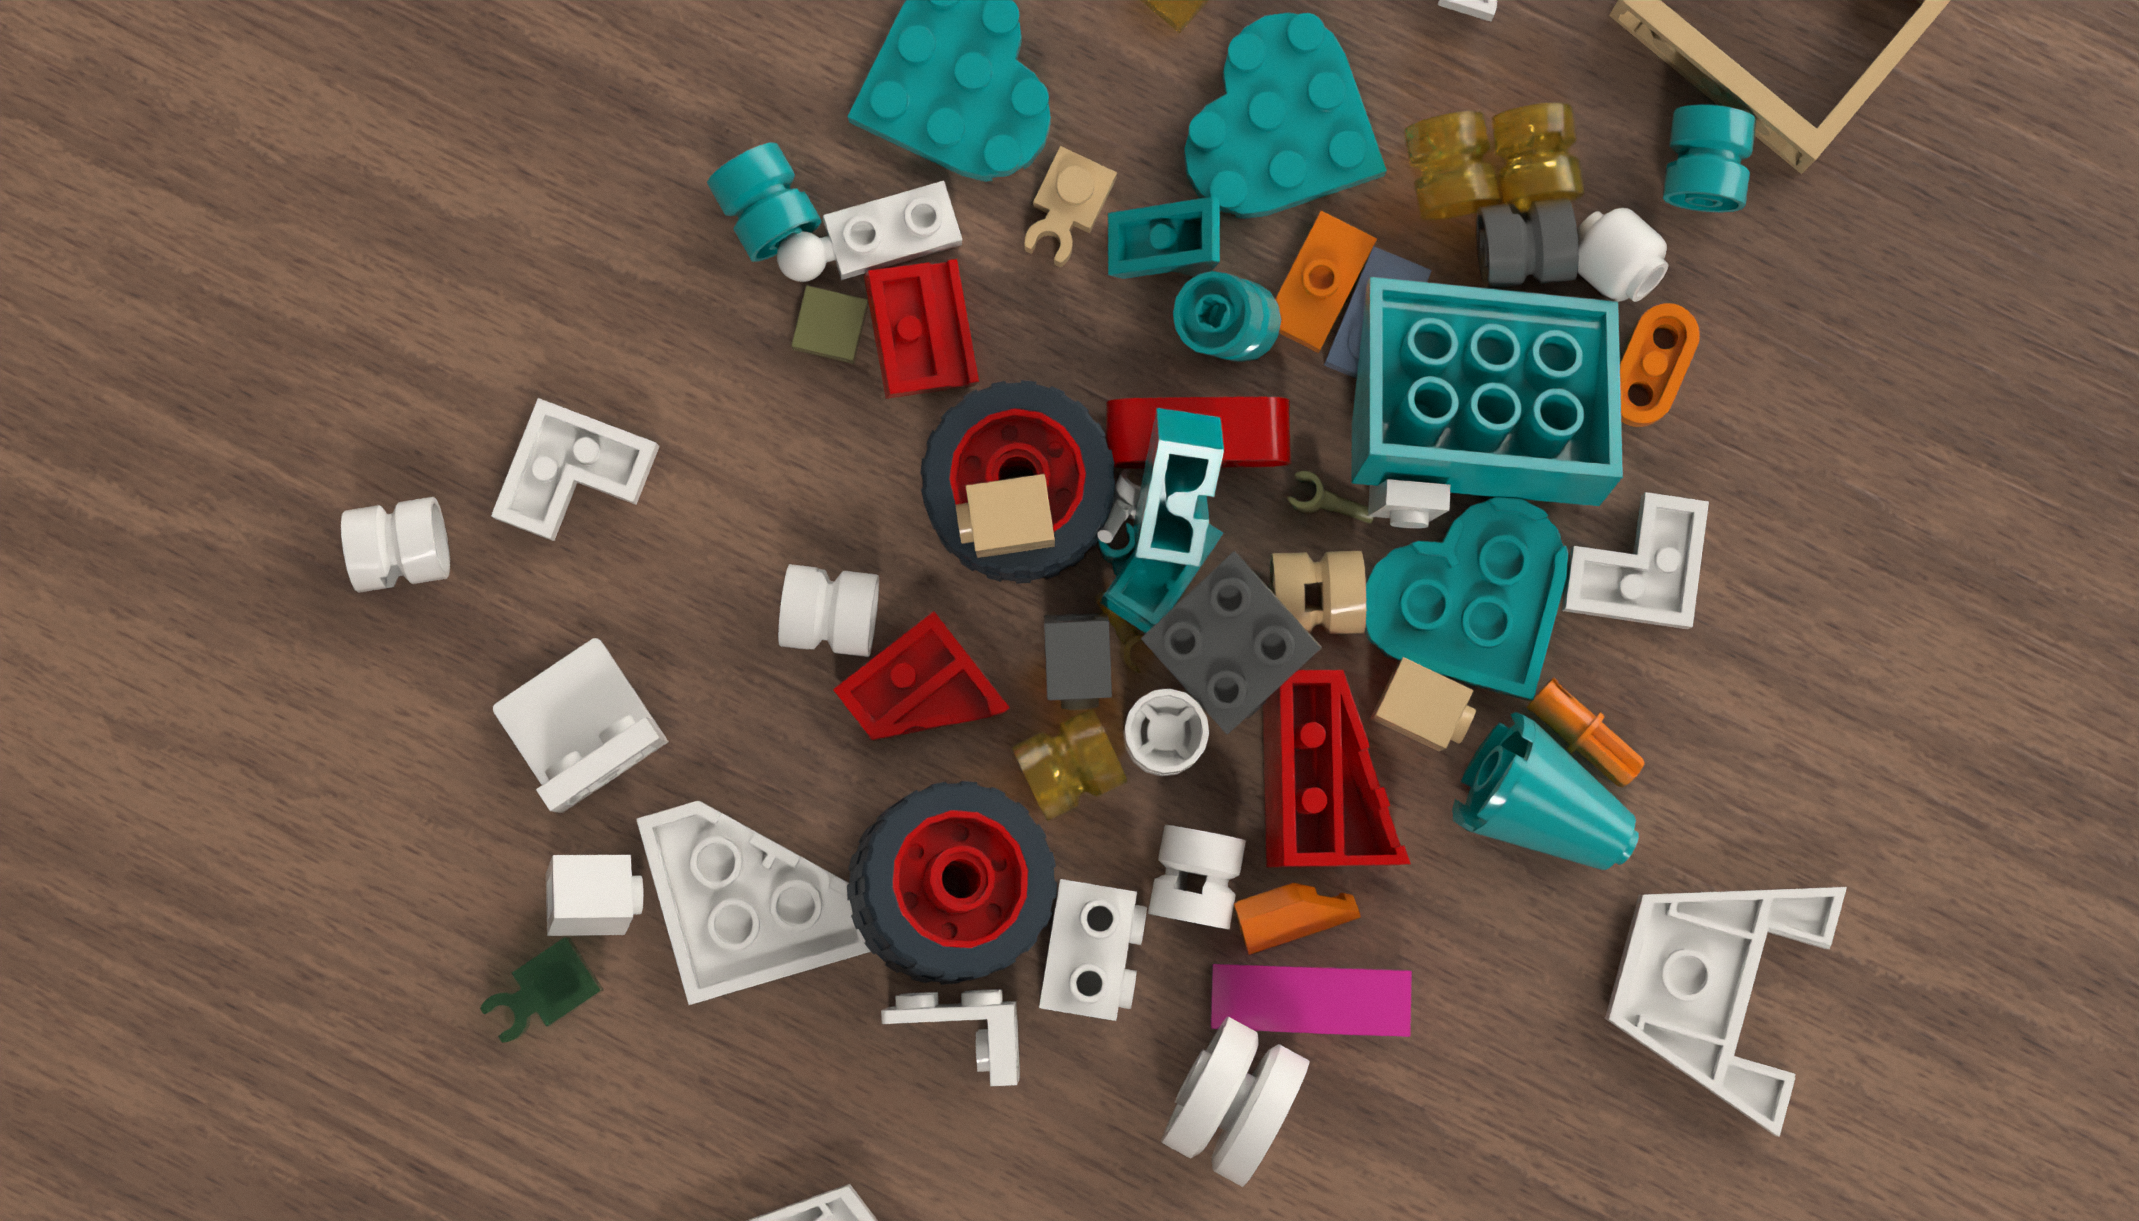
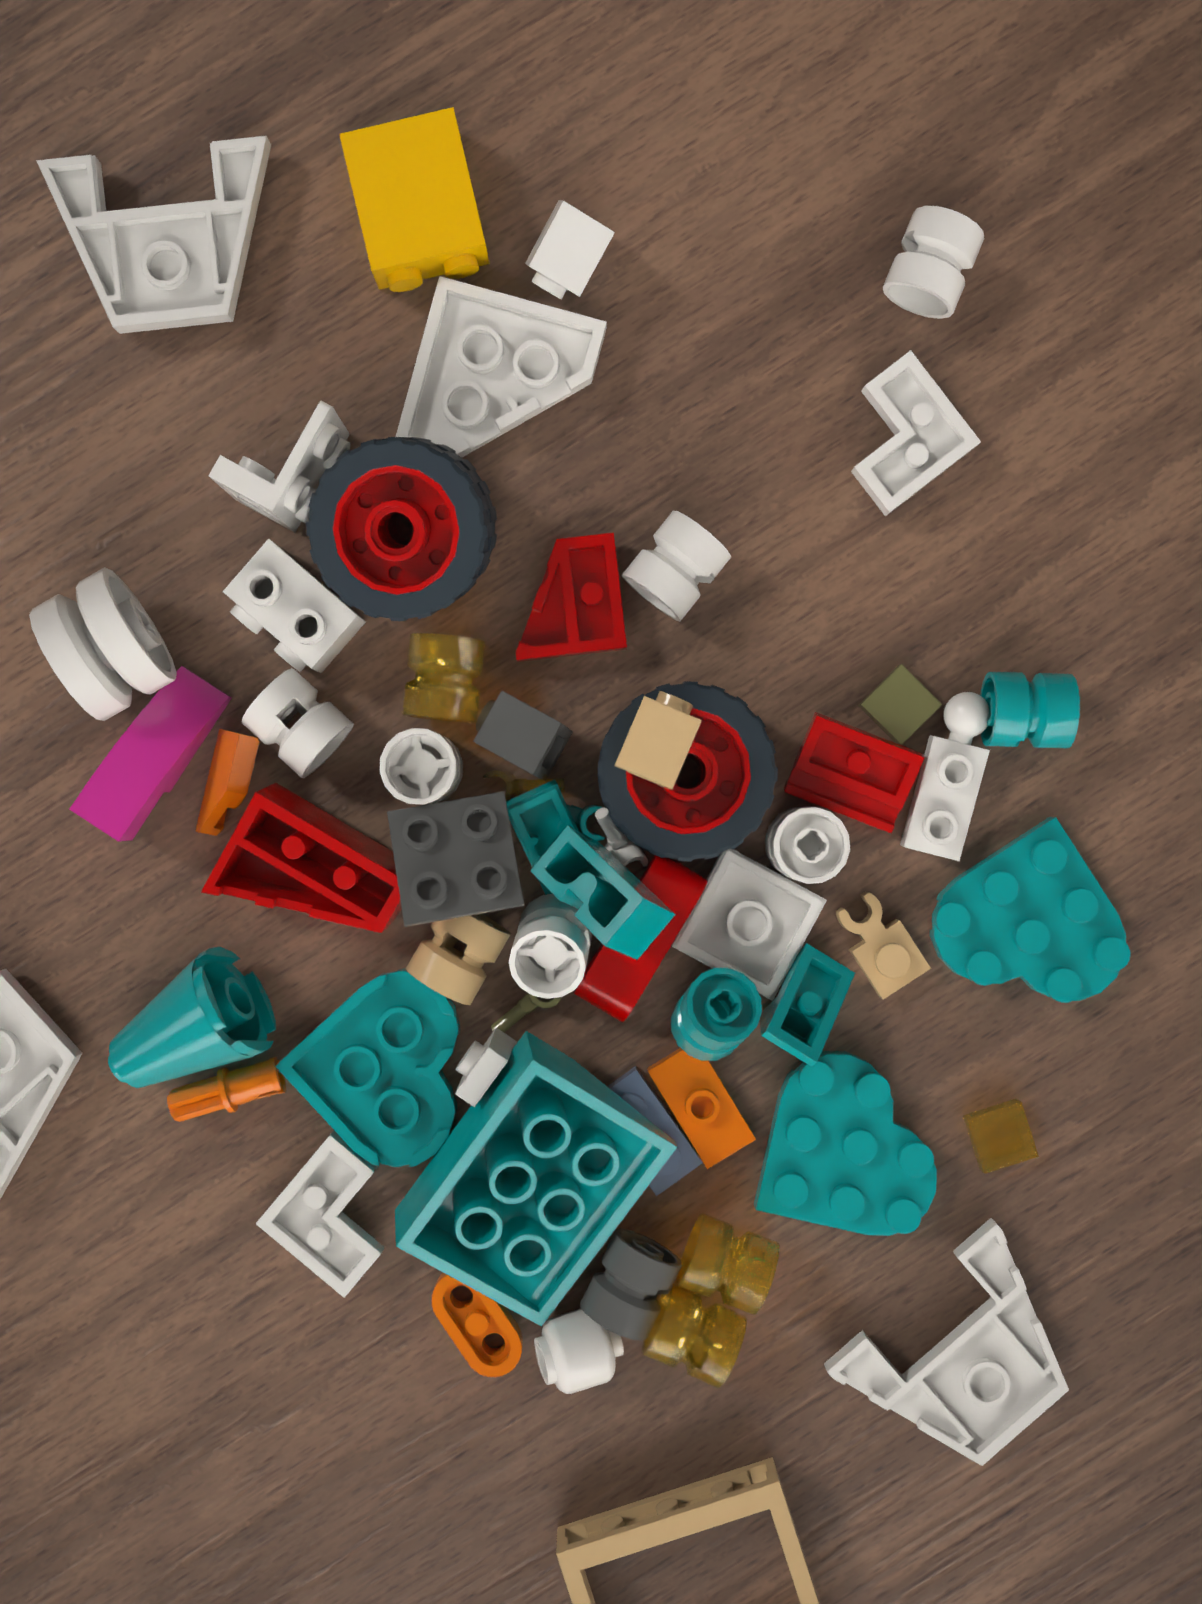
camera: 120 degrees right, 5 degrees up
(550, 986) = (519, 180): clear green plate -> none
(579, 725) = (705, 322): white bracket -> none
(629, 1072) = (415, 200): none -> yellow brick
(1016, 329) = (807, 844): none -> white wheel
(1120, 339) = (749, 921): none -> white tile
(1259, 507) = (549, 949): none -> white wheel
(1424, 706) = (322, 979): tan brick -> none
(1710, 153) = (616, 1473): teal wheel -> none

